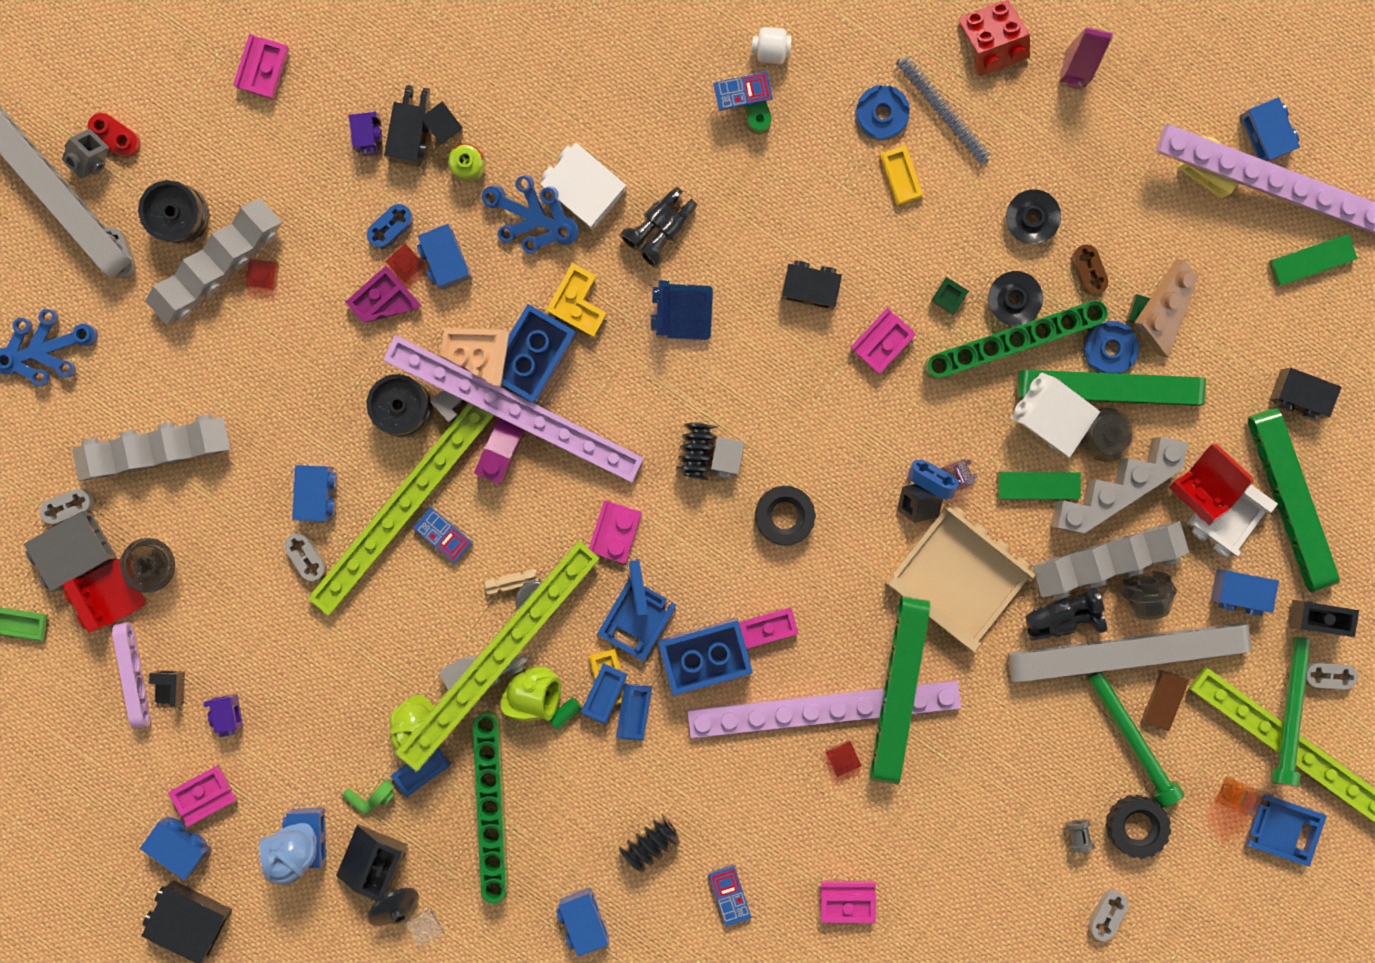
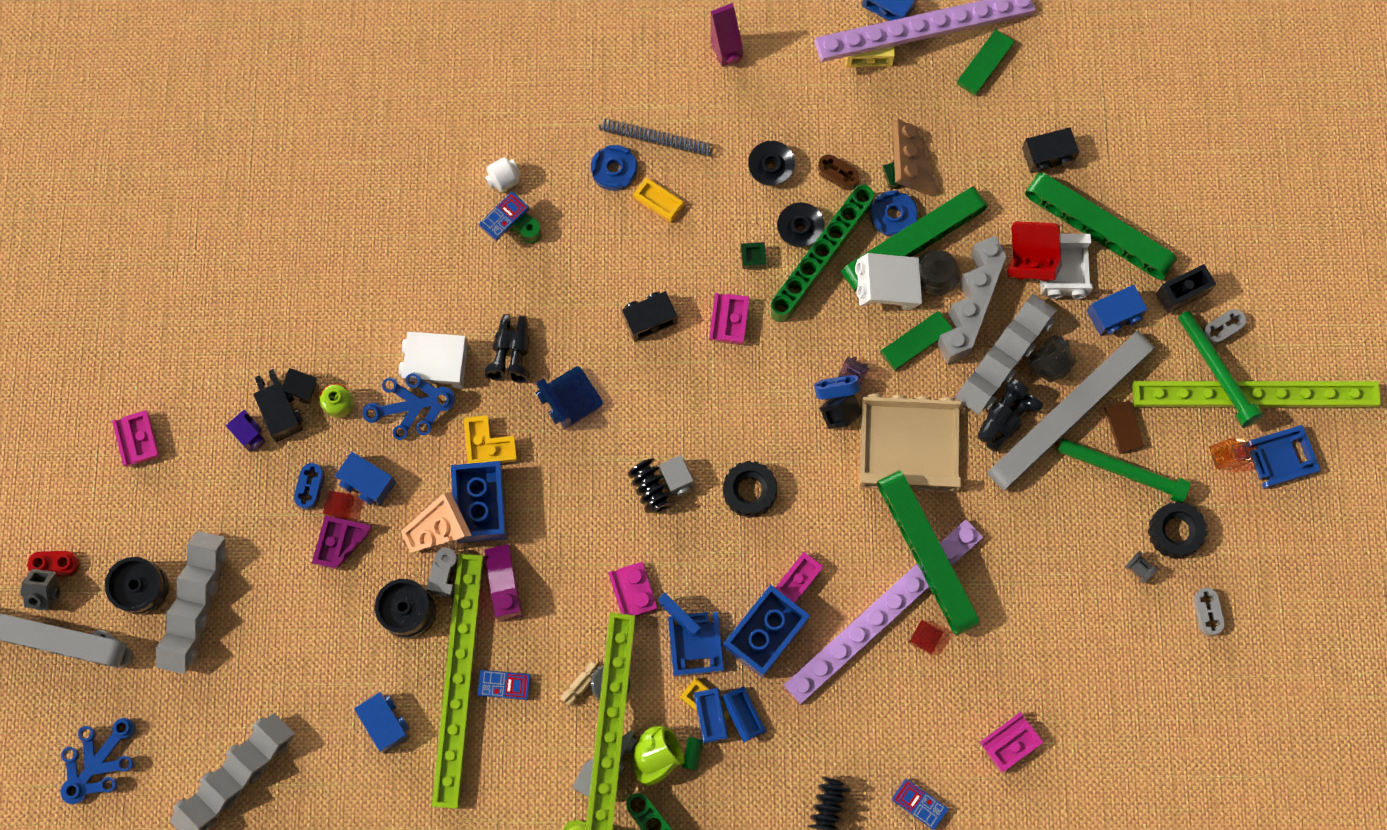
camera: 30 degrees left, 15 degrees down
(262, 274) = (234, 587): clear red plate -> none
(300, 560) = (411, 771): light grey beam -> none
(513, 408) = (492, 550): lavender plate -> none
(996, 37) = (657, 65): red bracket -> none

